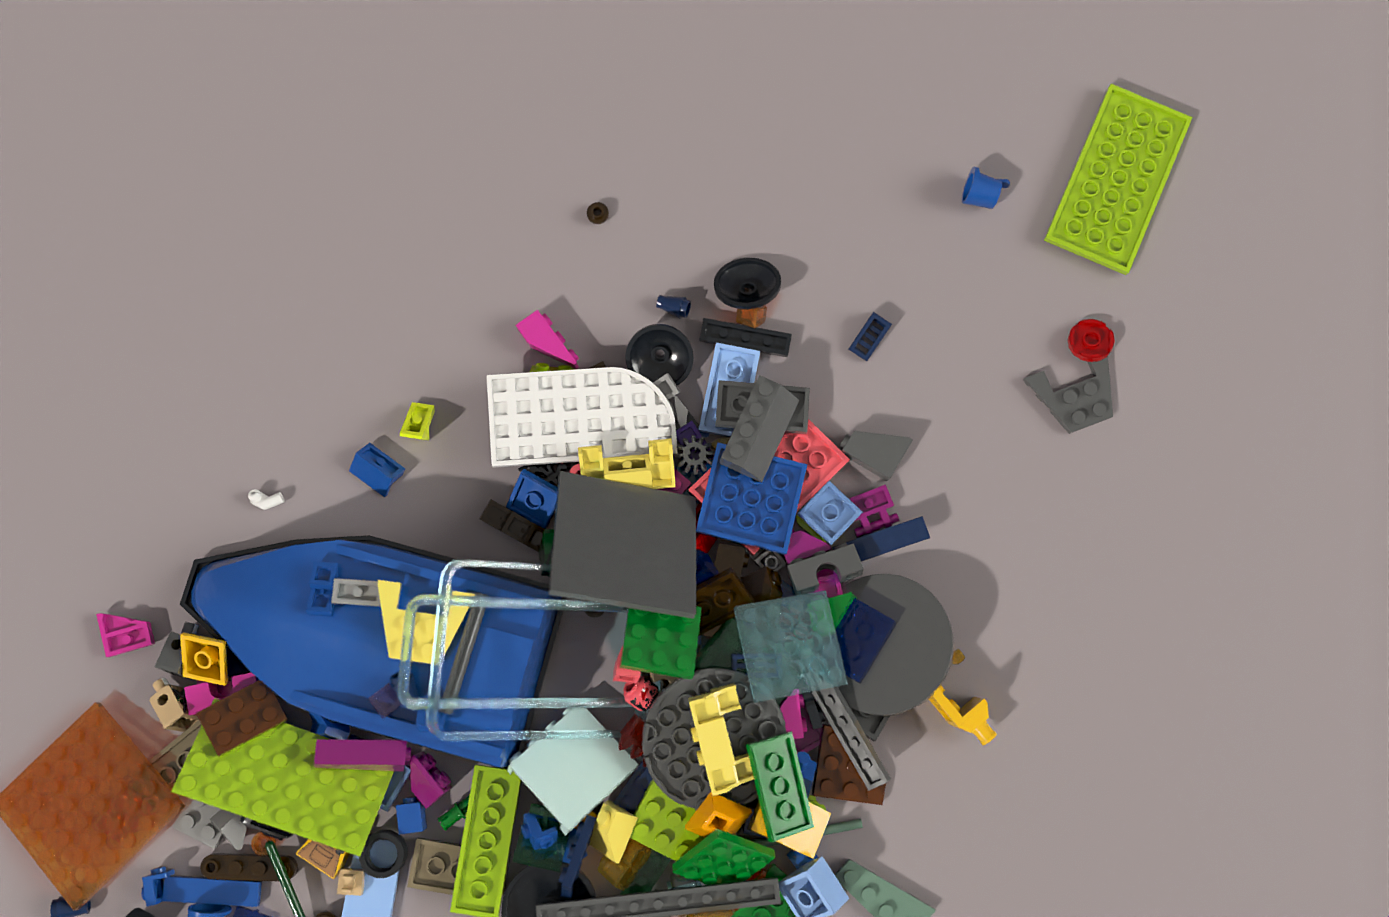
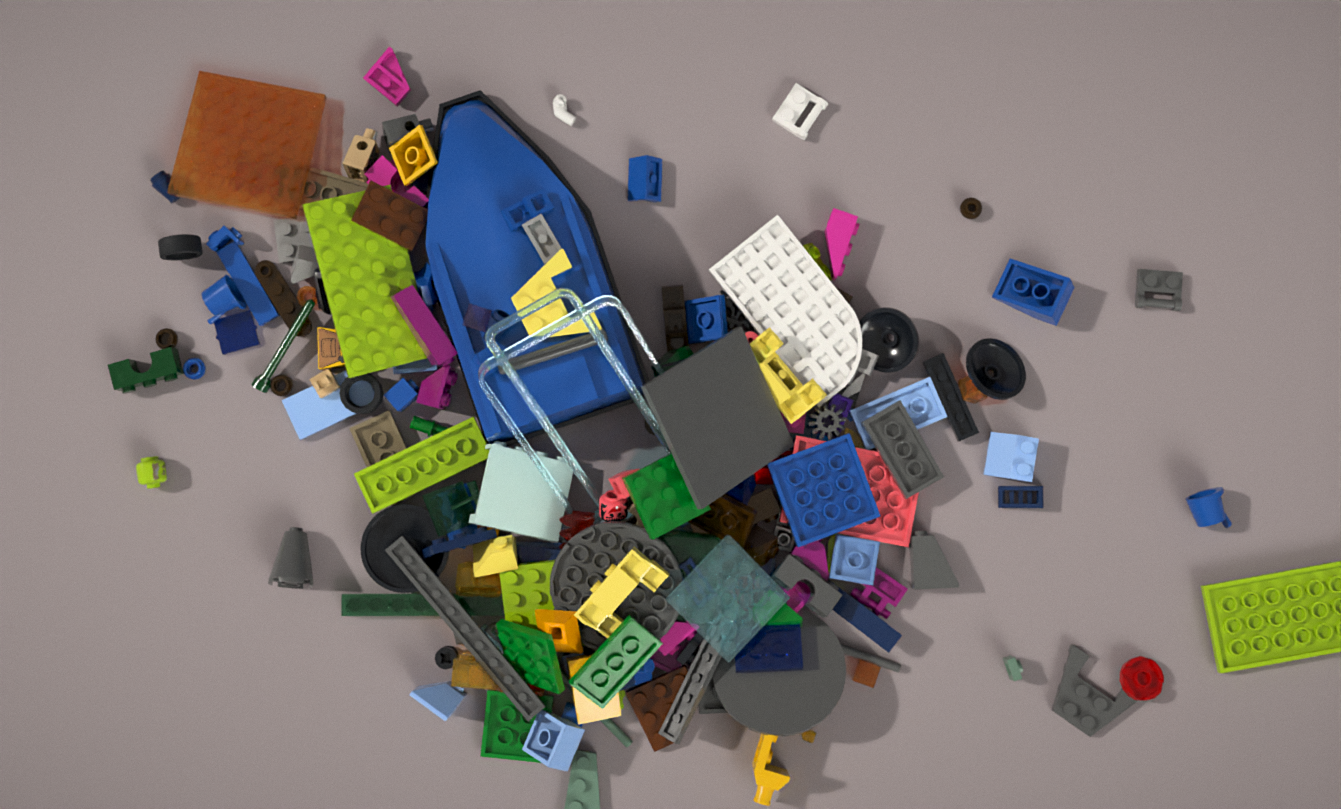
camera: 60 degrees right, 5 degrees up
(407, 301) = (793, 108): none -> white plate
(418, 421) = (704, 185): neon yellow slope -> none
(532, 830) = (454, 496): blue bracket -> none
(676, 306) = (937, 323): dark blue cone -> none
(703, 208) = (1034, 291): none -> blue slope
(759, 429) = (882, 460): dark grey slope -> none
(767, 103) = (1159, 282): none -> dark grey plate
(830, 321) = (1011, 456): none -> light blue slope
(925, 556) = (871, 658): none -> dark grey bar
(935, 570) = (866, 673): none -> clear orange plate
(1012, 440) = (1013, 668): none -> sand green plate

